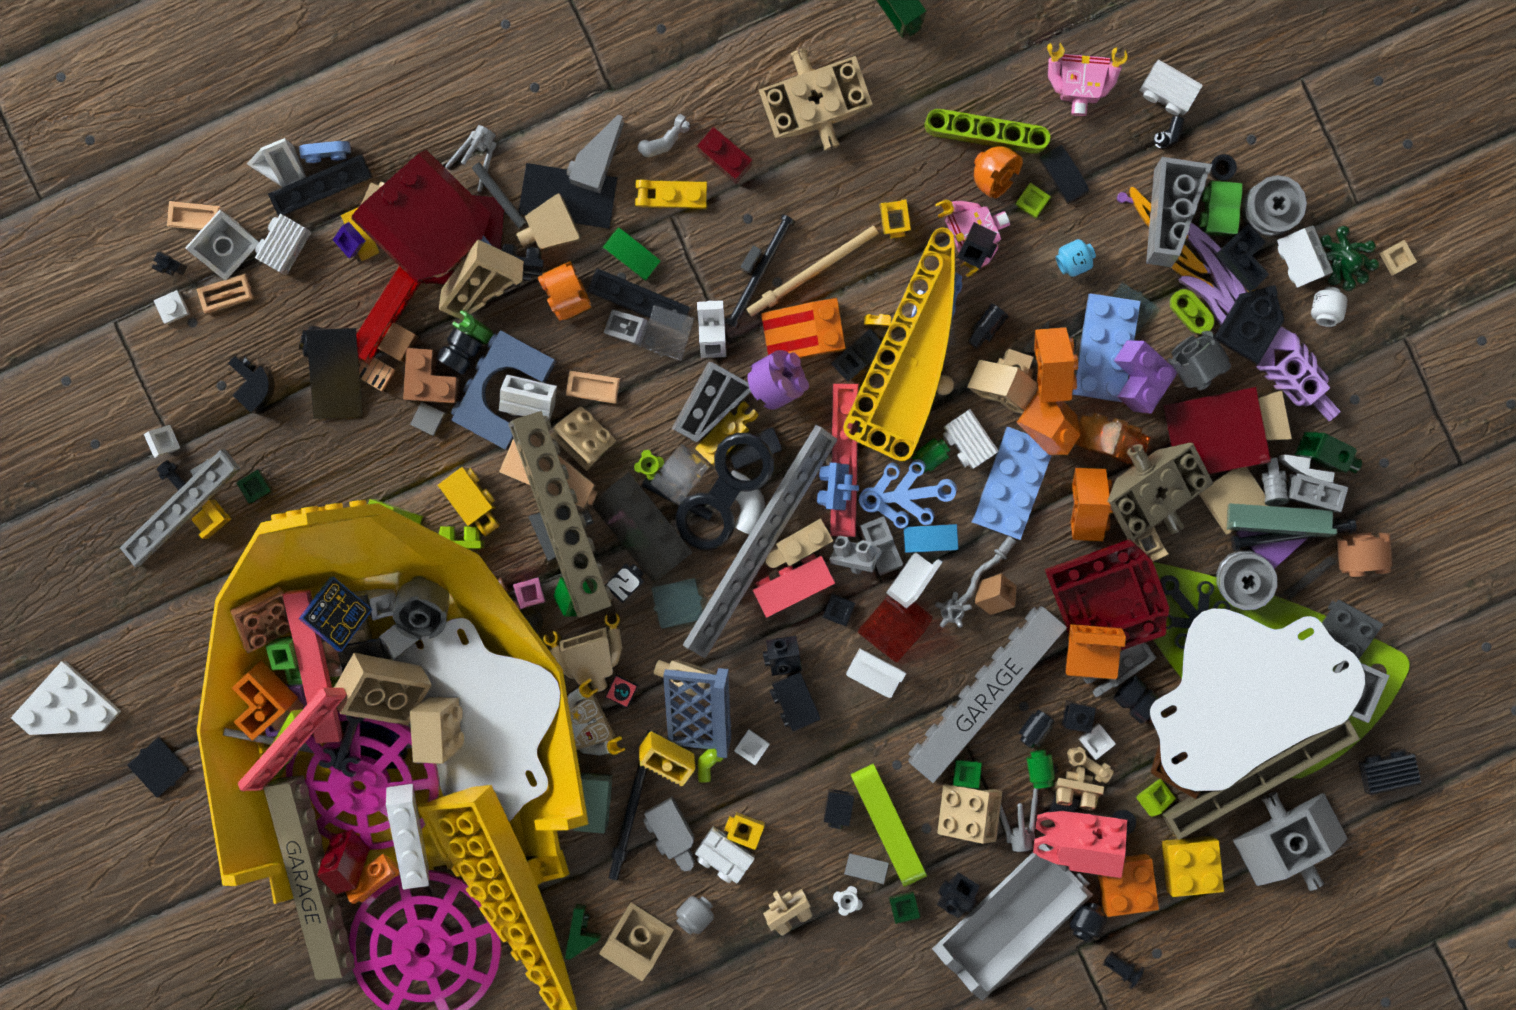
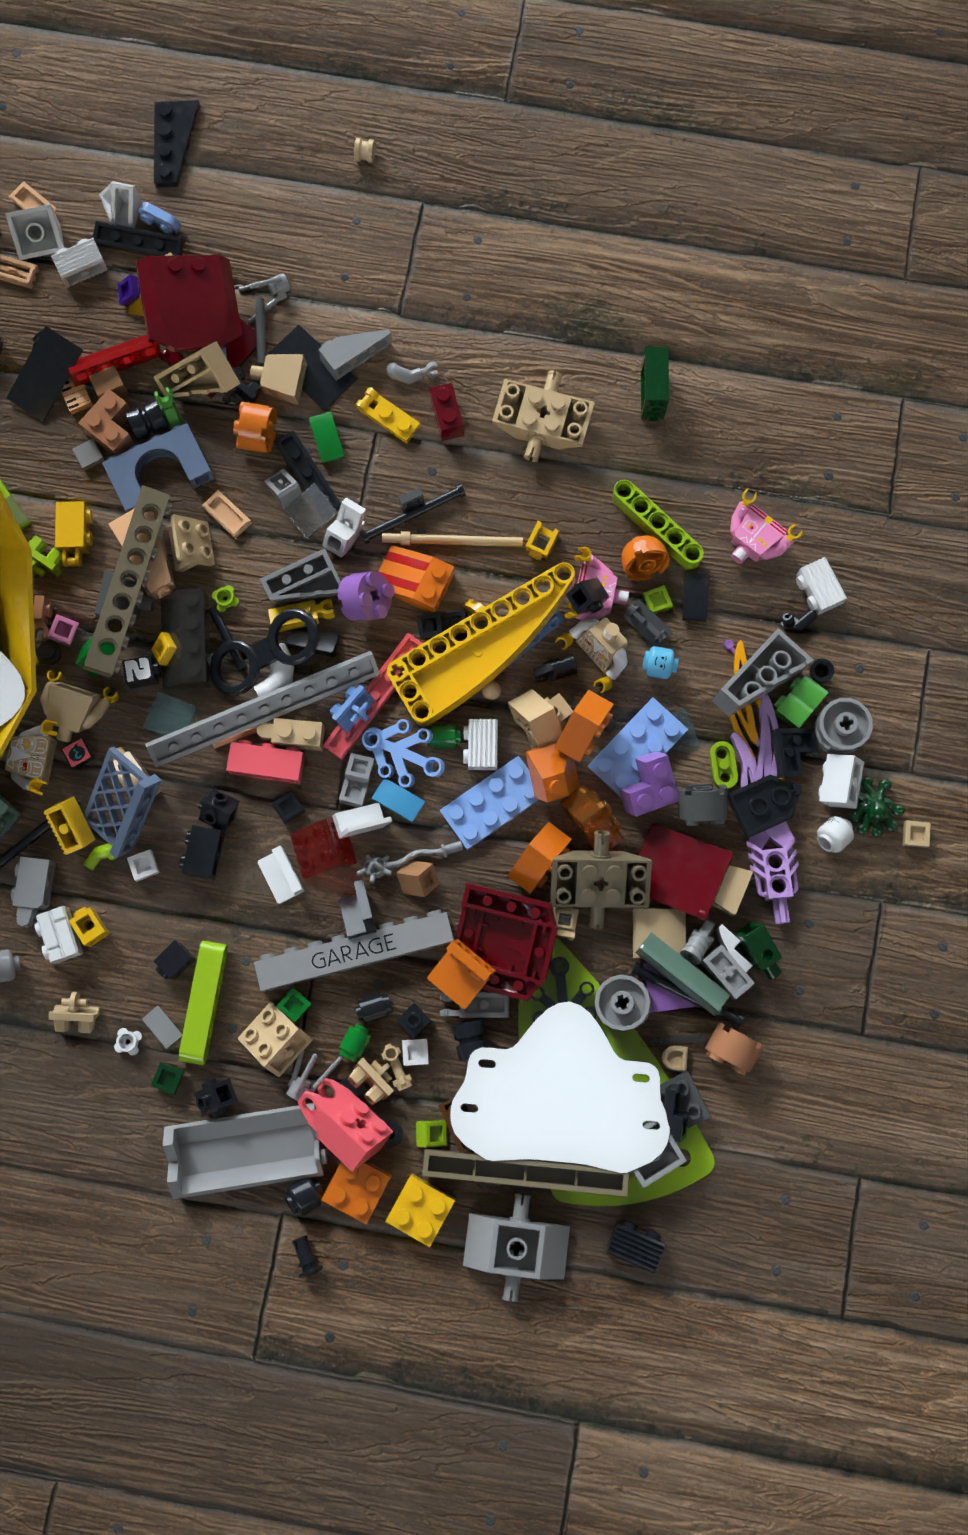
camera: 40 degrees right, 10 degrees down
(271, 56) = (171, 139): none -> black wing
(526, 397) = (169, 480): white brick -> none
(630, 548) = (164, 648): none -> yellow tile
(680, 474) = (240, 616): clear brick -> none
(855, 555) = (330, 772): light grey hips -> none
(966, 660) = (357, 912): none -> panel
(1014, 277) = (602, 644): none -> torso
(1039, 228) = (647, 623): none -> dark grey hinge
(1318, 594) = (675, 1058): none -> tan tile
(1355, 645) = (676, 1119): none -> black slope

